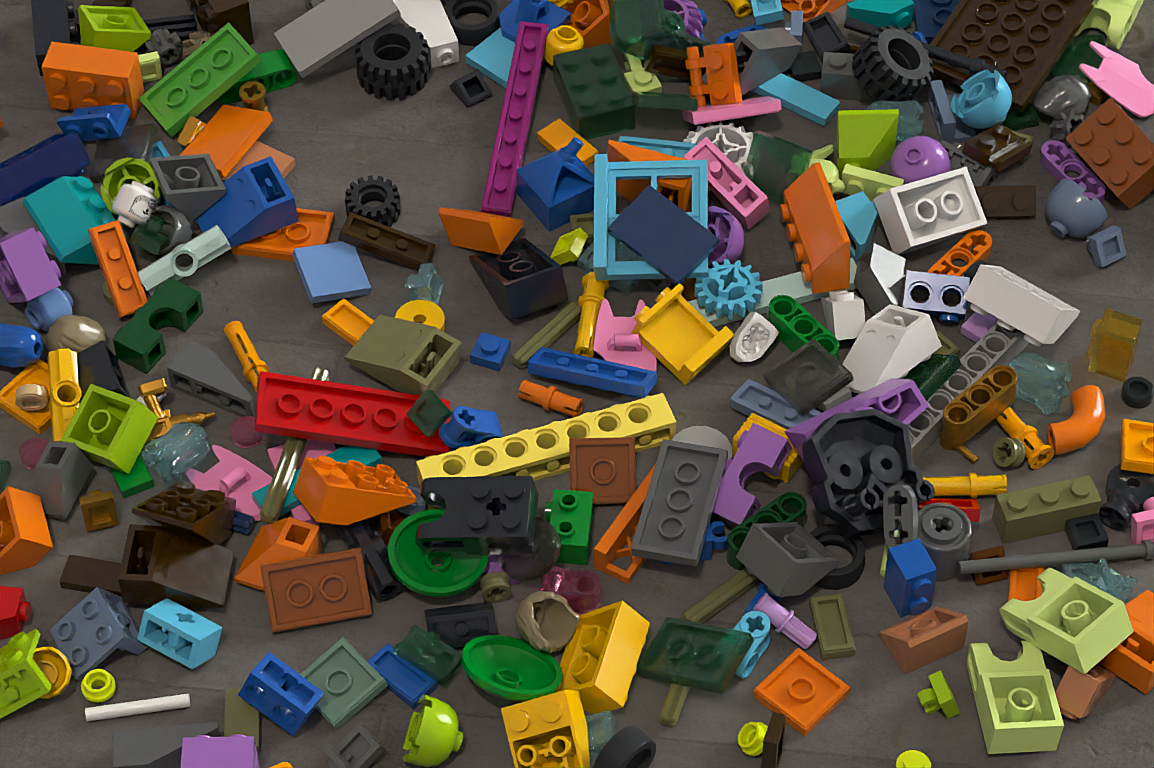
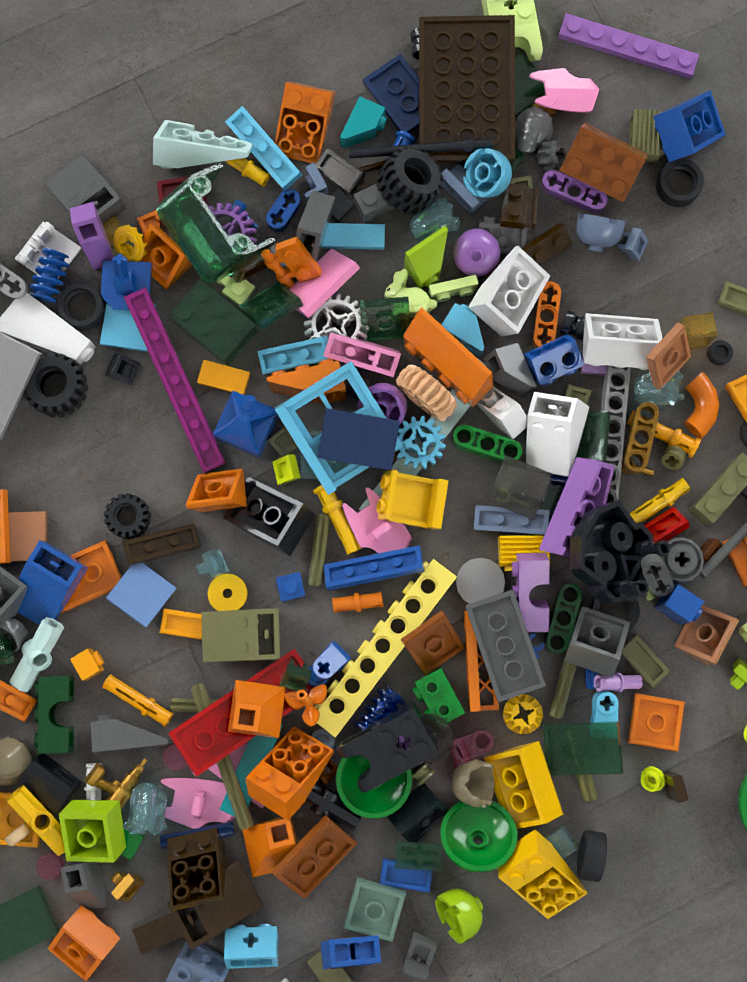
camera: 35 degrees left, 30 degrees up
(227, 300) = (88, 664): none -> light orange plate
(363, 408) = (256, 709): none -> orange slope
(420, 438) = (301, 699): none -> orange plant
(562, 40) = (166, 296): yellow head -> none
(664, 605) = (511, 710): none -> yellow gear
(752, 338) = (457, 469): white rock -> none
(770, 246) = (426, 392): none -> light nougat gear
(1061, 330) = (668, 356): none -> nougat tile

